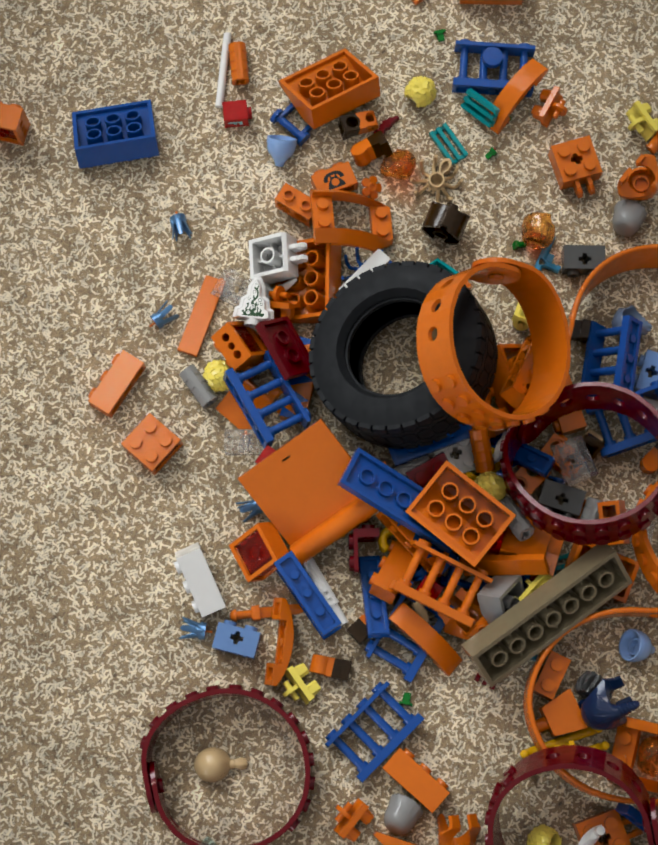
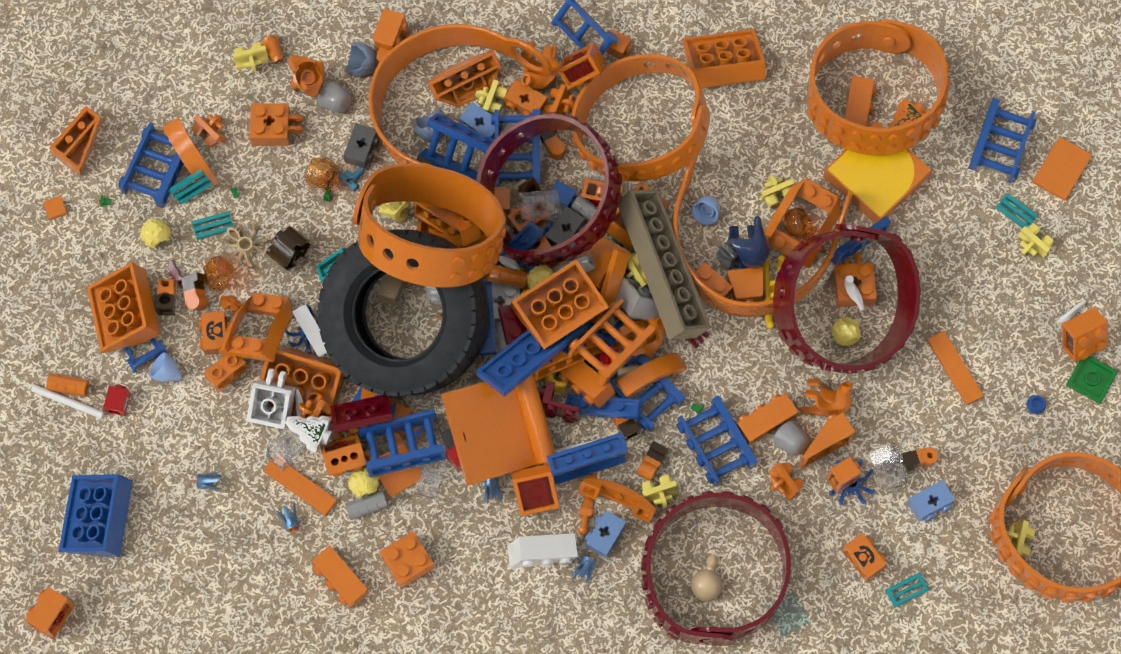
camera: 75 degrees left, 5 degrees down
(492, 57) = (147, 161): blue tile -> none
(599, 486) = (566, 194): none -> blue brick

